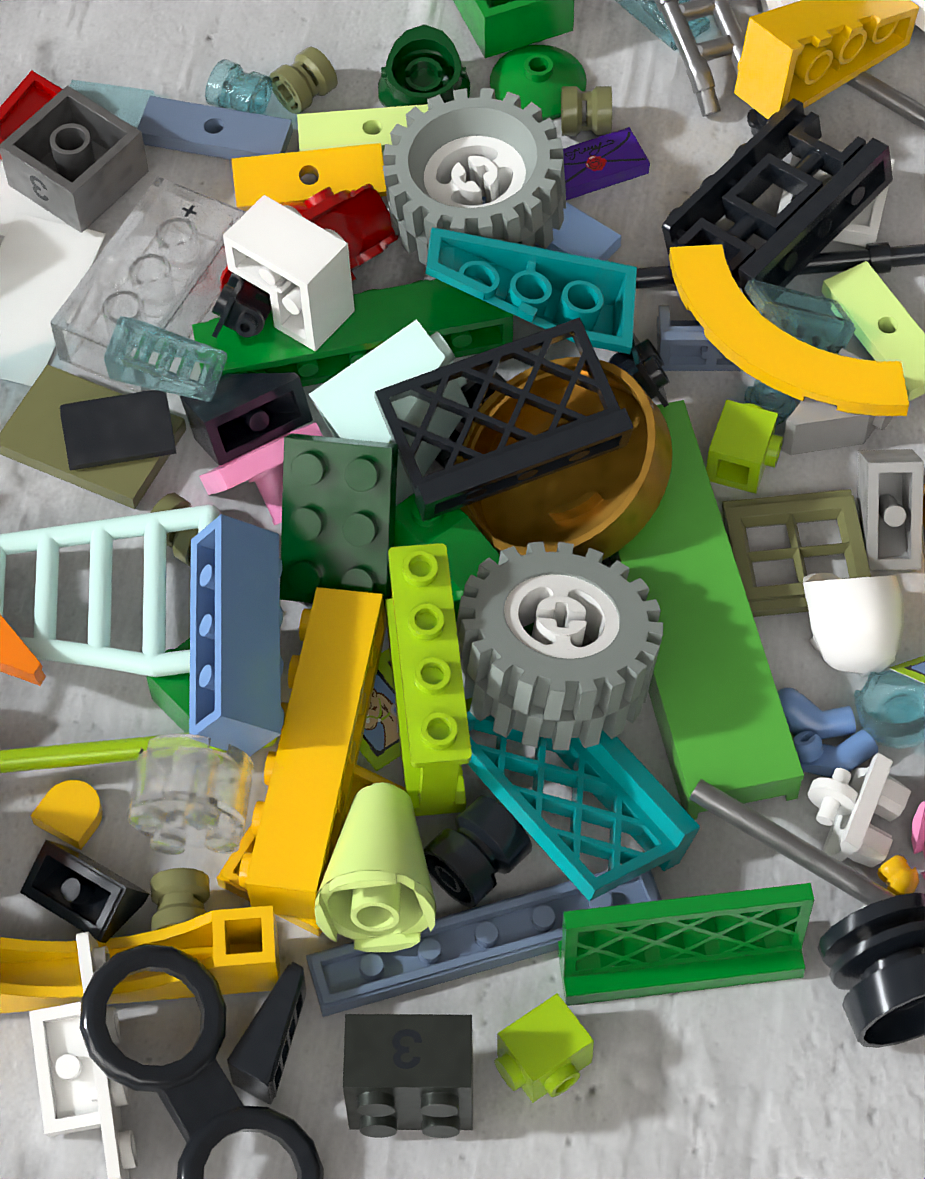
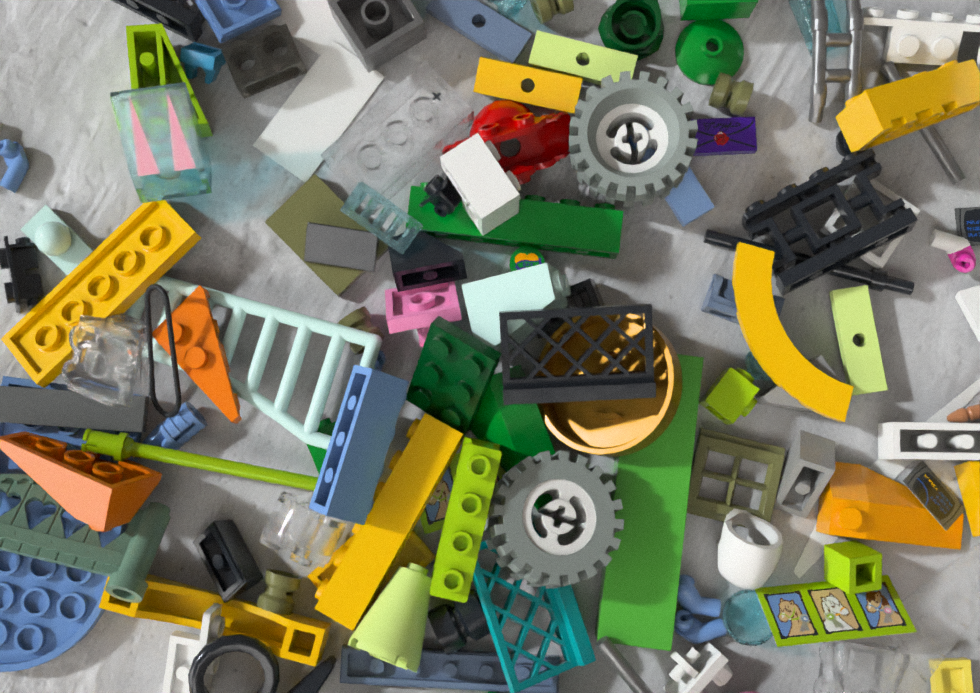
camera: 20 degrees right, 25 degrees up
(69, 812) = (236, 500): yellow tile -> none
(540, 284) = (648, 251): teal wedge -> none
(645, 367) = (683, 321): black hinge -> none
(807, 316) = (806, 319): clear light blue slope -> none

